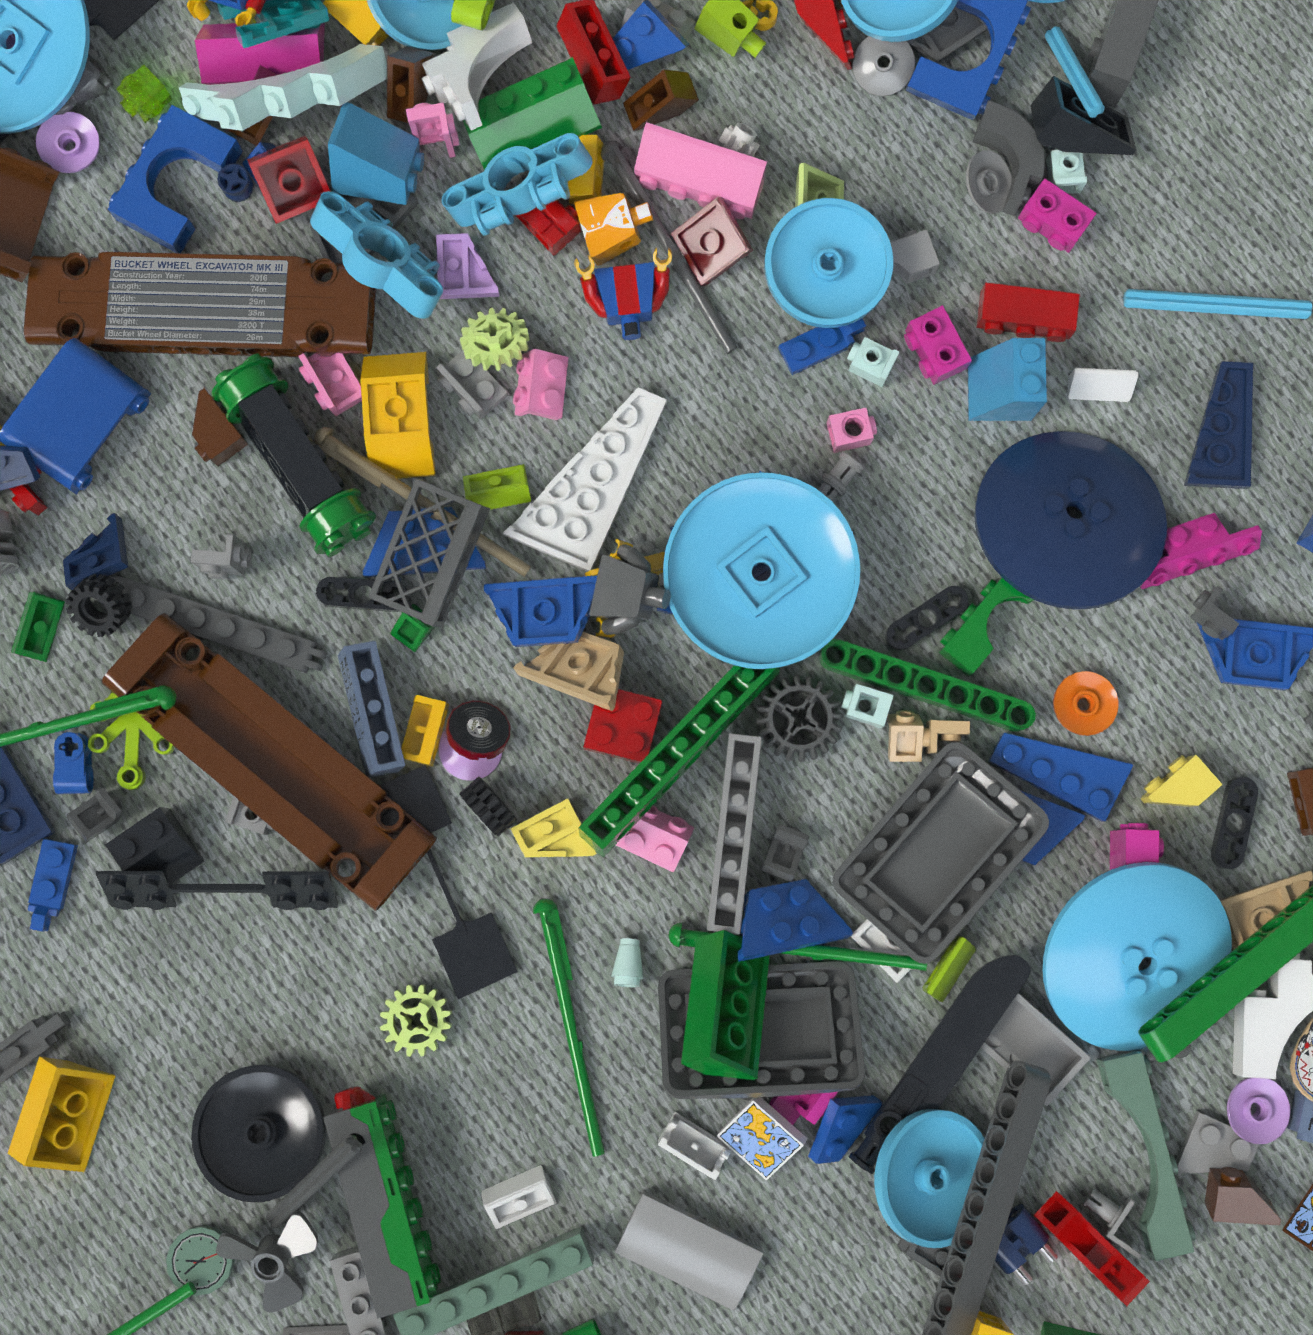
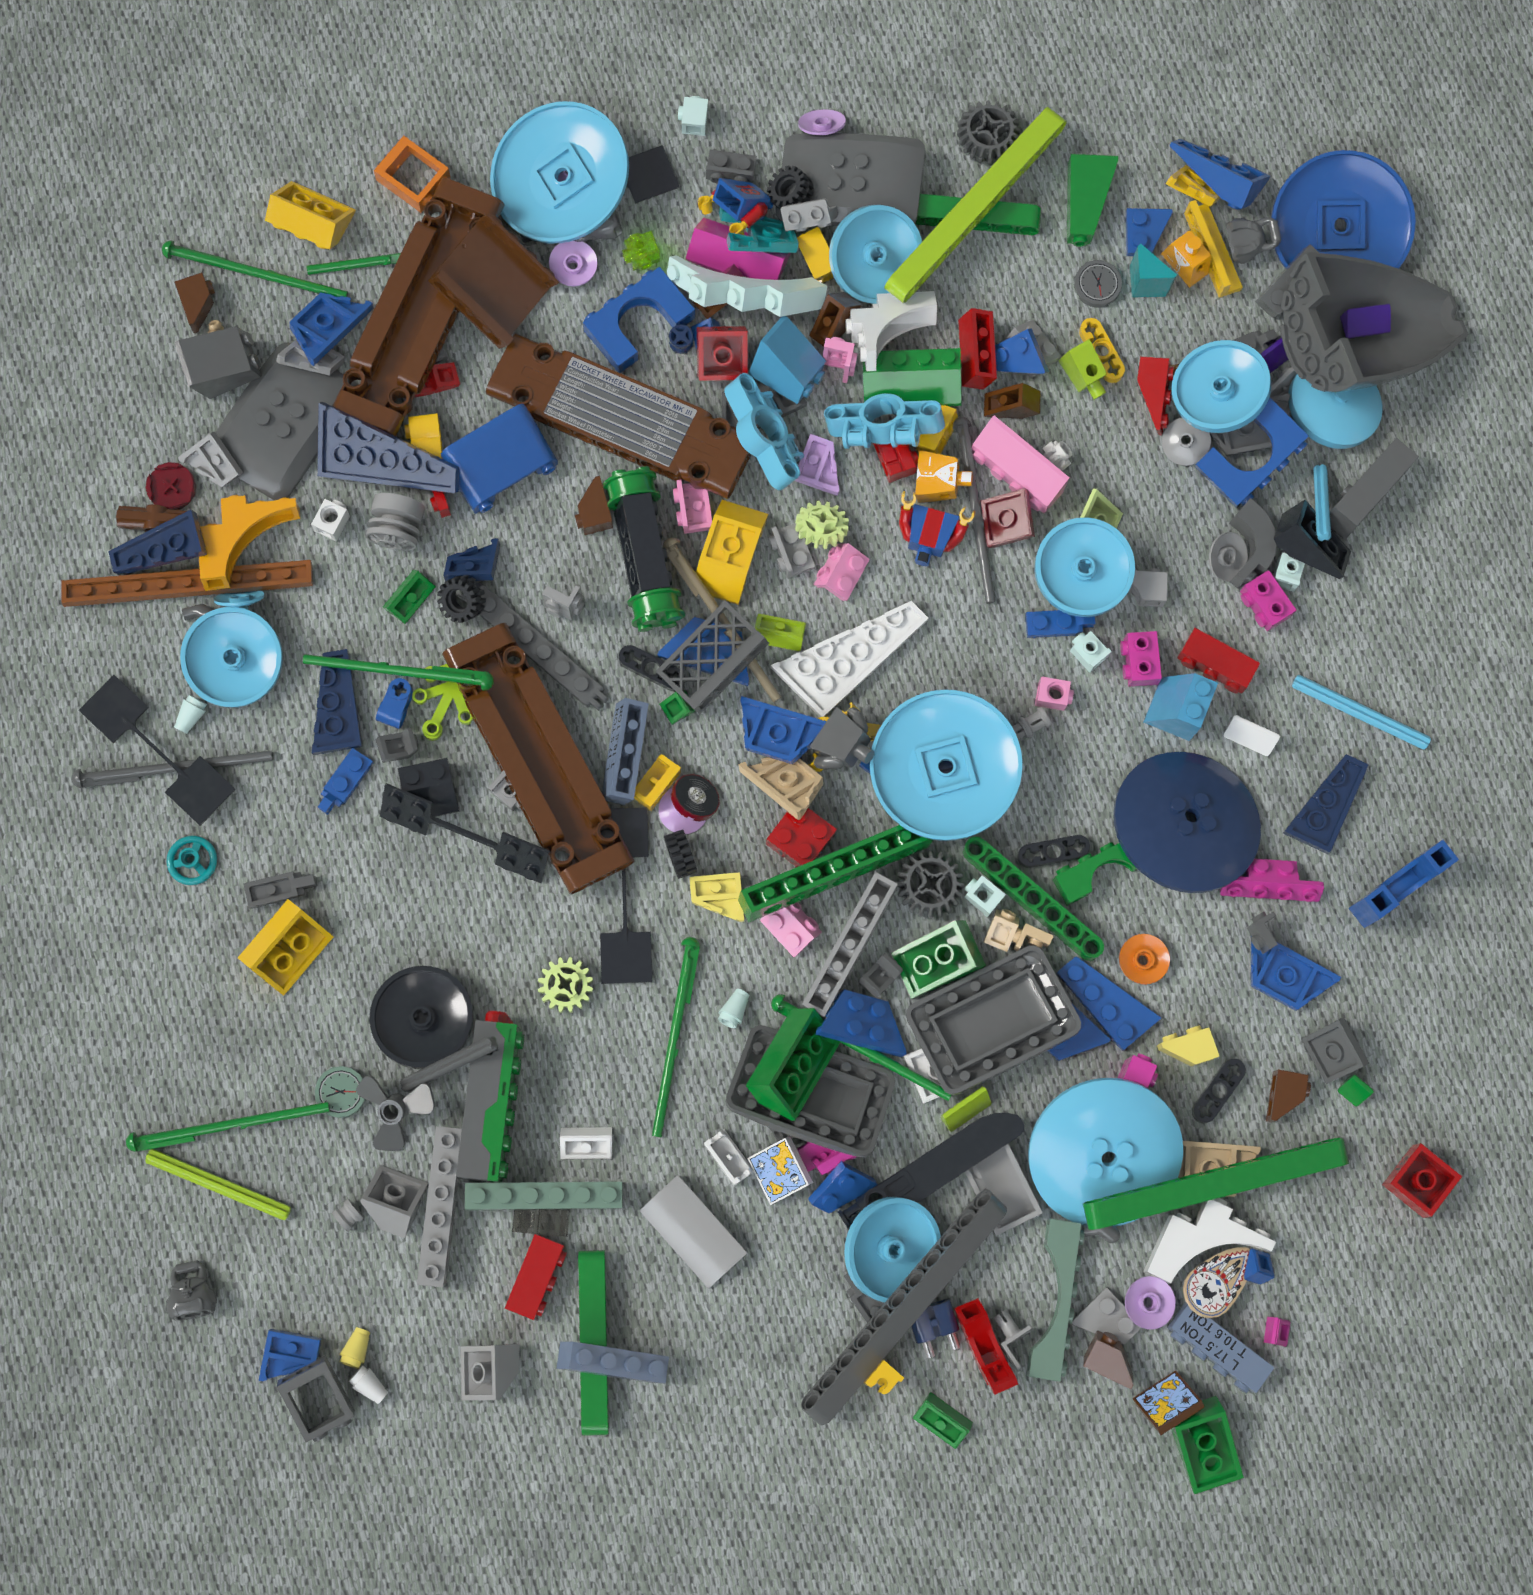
camera: 15 degrees right, 5 degrees down
(845, 803) = (939, 958): none -> green slope

